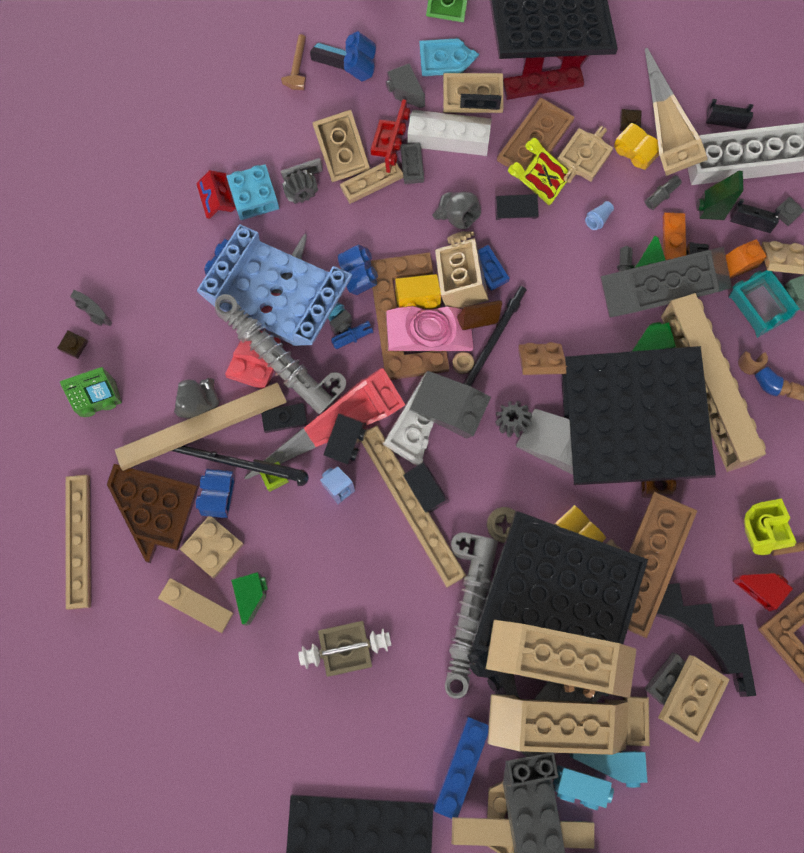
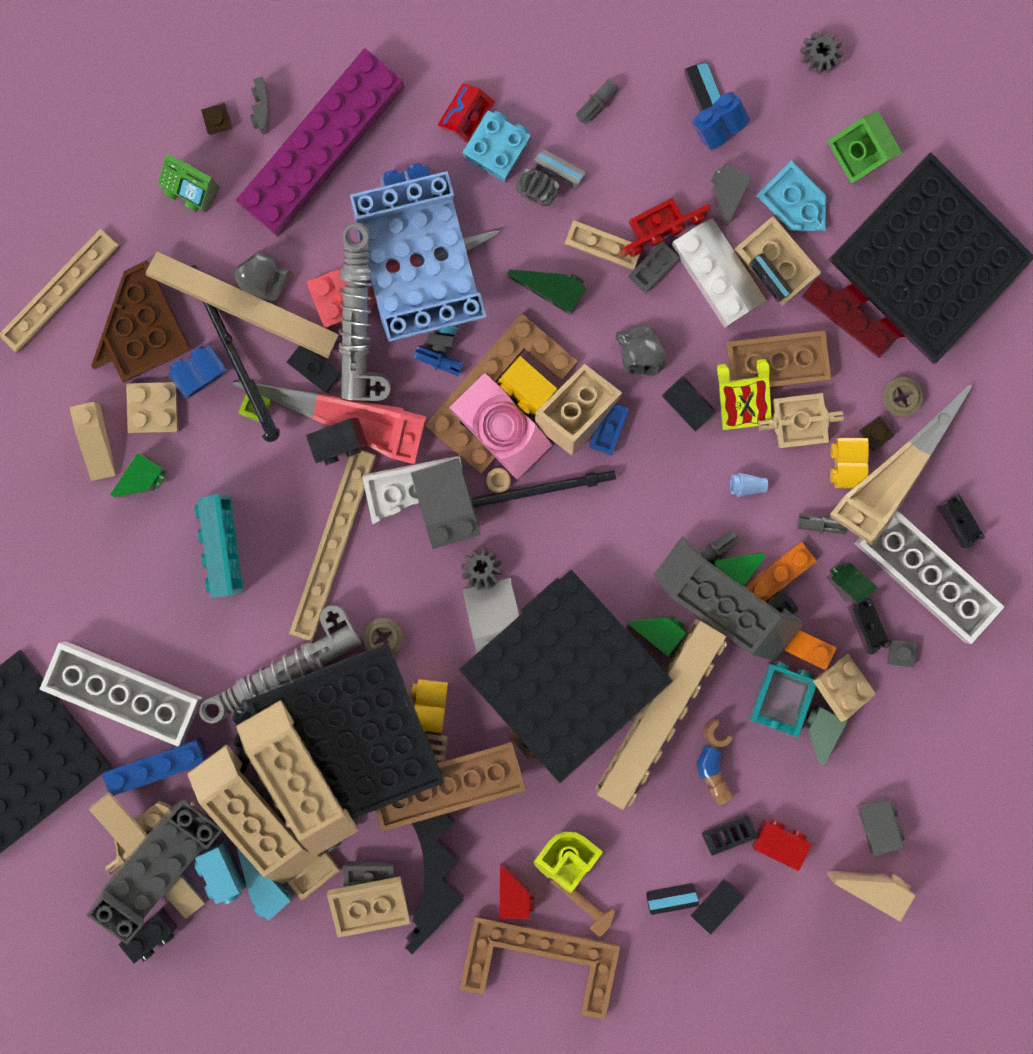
camera: 45 degrees right, 15 degrees up
(148, 293) = (320, 142): none -> magenta brick
(281, 116) = (597, 101): none -> dark grey axle
(295, 81) = (646, 78): medium nougat piece -> none
(337, 484) = (293, 467): light blue slope -> none
(341, 145) = (613, 185): tan slope -> none
(344, 578) = (220, 545): none -> teal slope
(344, 648) = (166, 594): dark tan plate -> none
(358, 263) = (502, 312): blue brick -> none
(370, 229) = (553, 287): none -> dark green slope
(386, 745) = (121, 693): none -> white brick
(425, 488) = (356, 545): black hinge -> none
(460, 236) = (615, 375): tan piece -> none
(480, 315) = (551, 460): reddish brown slope -> none
(542, 359) = (557, 548): medium nougat plate -> none
(628, 88) = (913, 401): none -> dark tan gear

